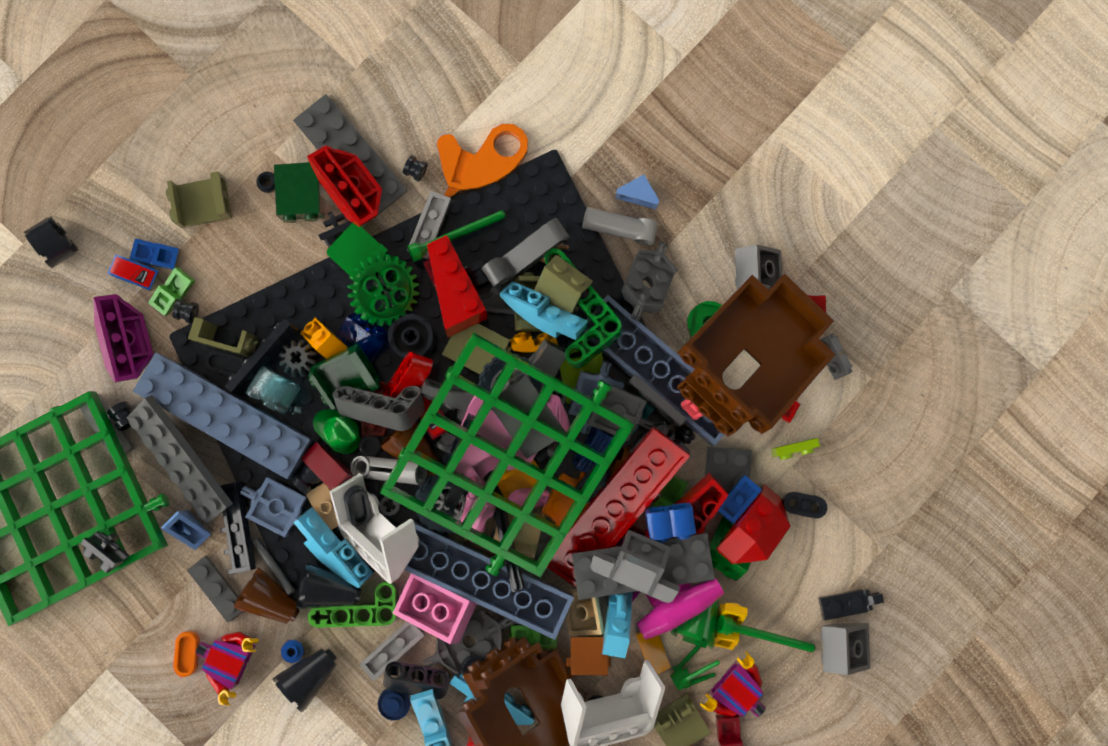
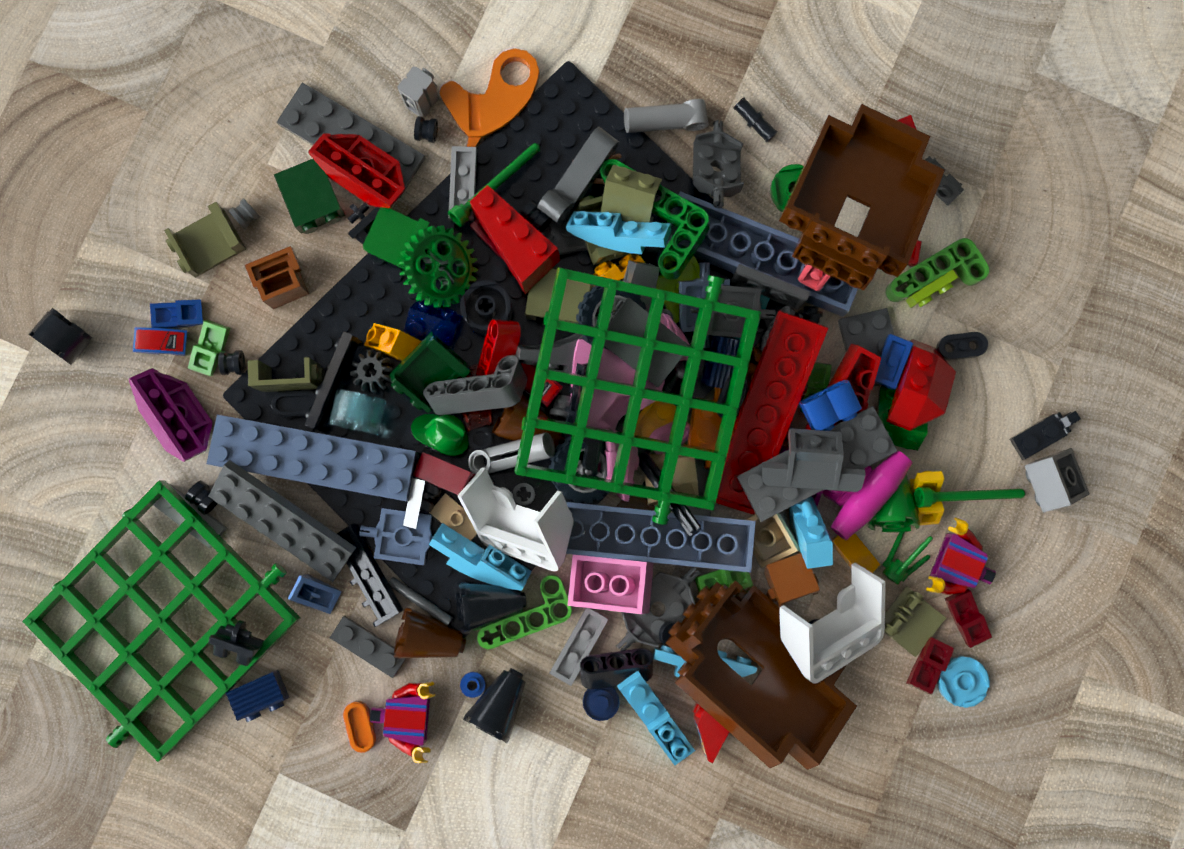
camera: 15 degrees left, 0 degrees up
(110, 599) = (258, 695): none -> dark blue brick
(239, 188) = (244, 213): none -> dark grey wheel
(247, 253) = (278, 278): none -> dark orange plate
(262, 178) = (264, 196): black plate -> none
(293, 483) = (414, 503): none -> white sticker
(357, 505) = (491, 503): black tile -> none
(419, 134) = (418, 91): none -> light grey brick
(638, 192) = (674, 77): medium blue slope -> none
(695, 252) = (755, 119): none -> black pin
(760, 261) = (823, 102): dark grey slope -> none
(800, 434) = (932, 272): none -> bright green beam

